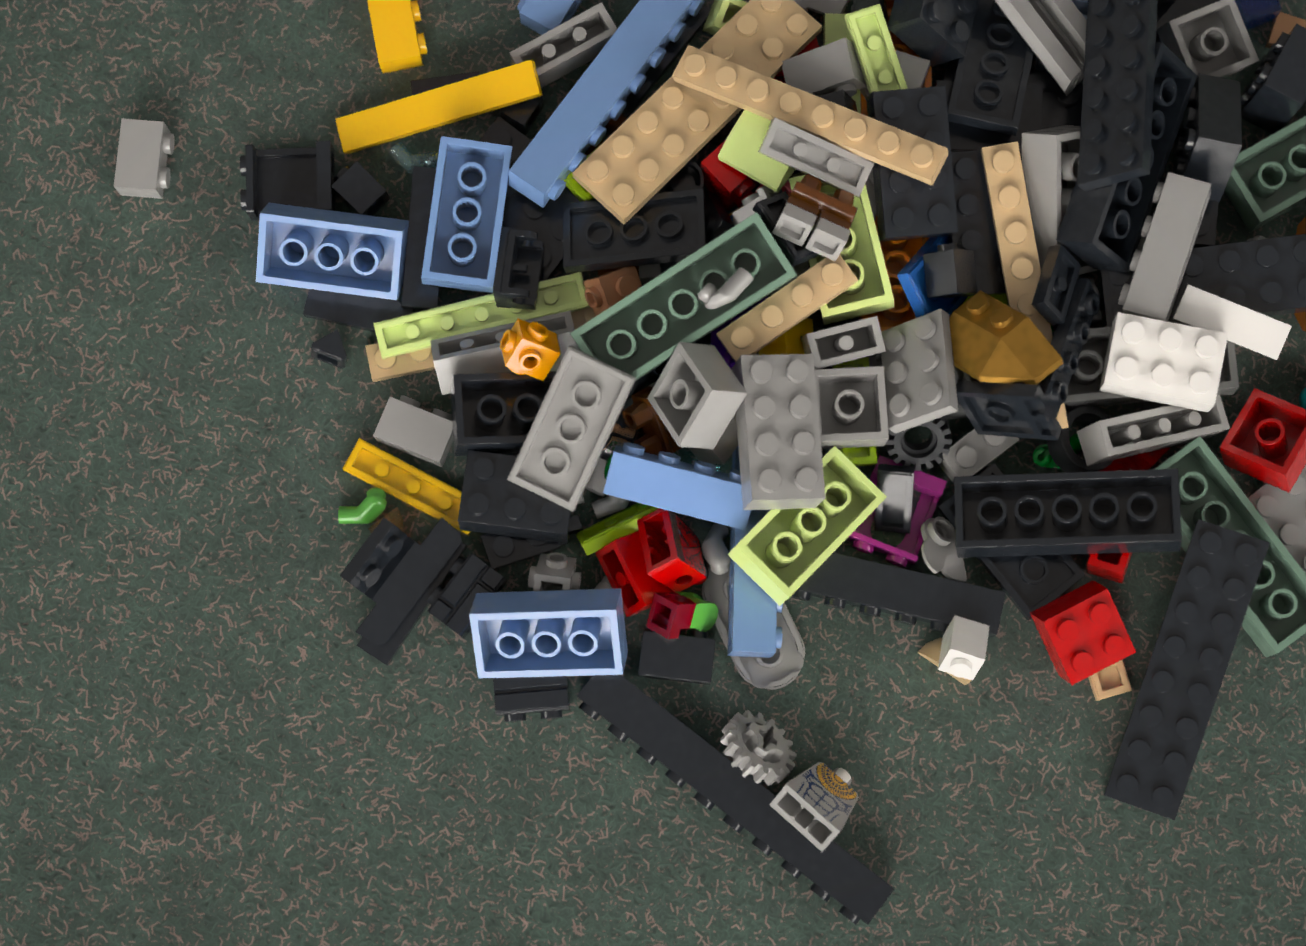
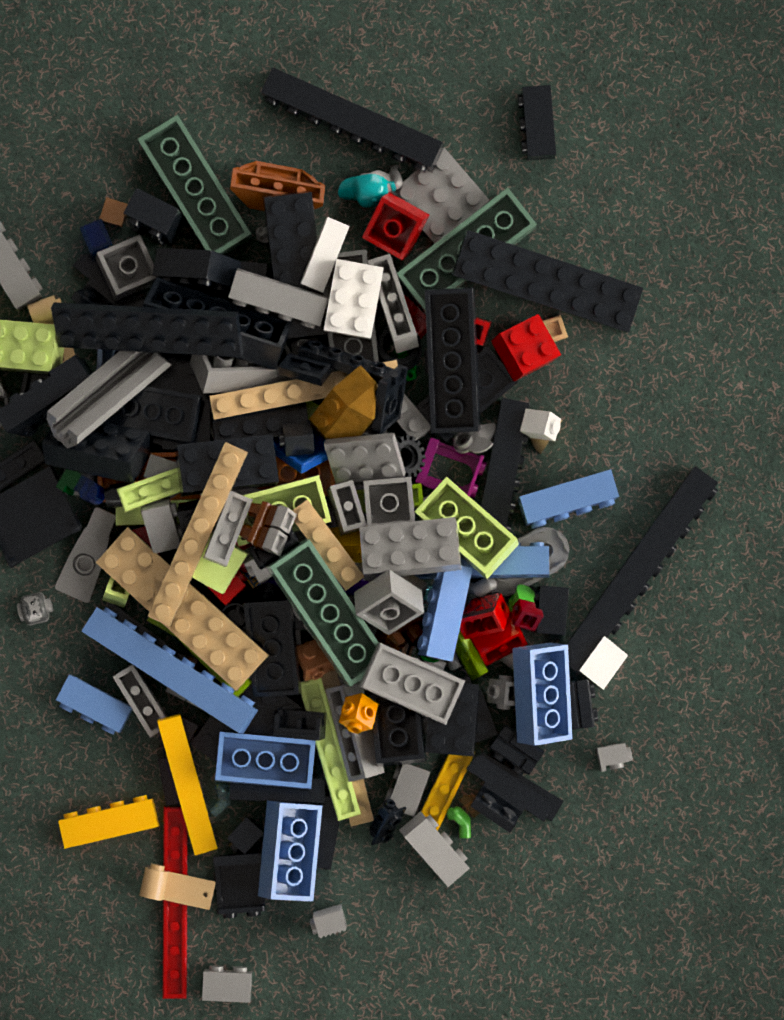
camera: 95 degrees left, 5 degrees up
(224, 304) = (328, 921): none -> light grey brick
(263, 90) = (175, 914): none -> red tile
(289, 89) = (176, 887): none -> tan door
(324, 465) = (435, 848): none -> light grey brick
(330, 350) = (355, 848): black slope -> none
(367, 395) = (386, 822): none -> black hinge
(450, 743) = (613, 756): none -> light grey brick
(593, 733) = (603, 662): none -> white sticker
(728, 292) = (325, 585): light grey arm -> none
(758, 748) = (609, 555): light grey gear -> none
(817, 803) = (643, 515): light grey torso -> none
(848, 686) = (568, 497): none -> medium blue brick
(896, 510) = (438, 469): black tile -> none

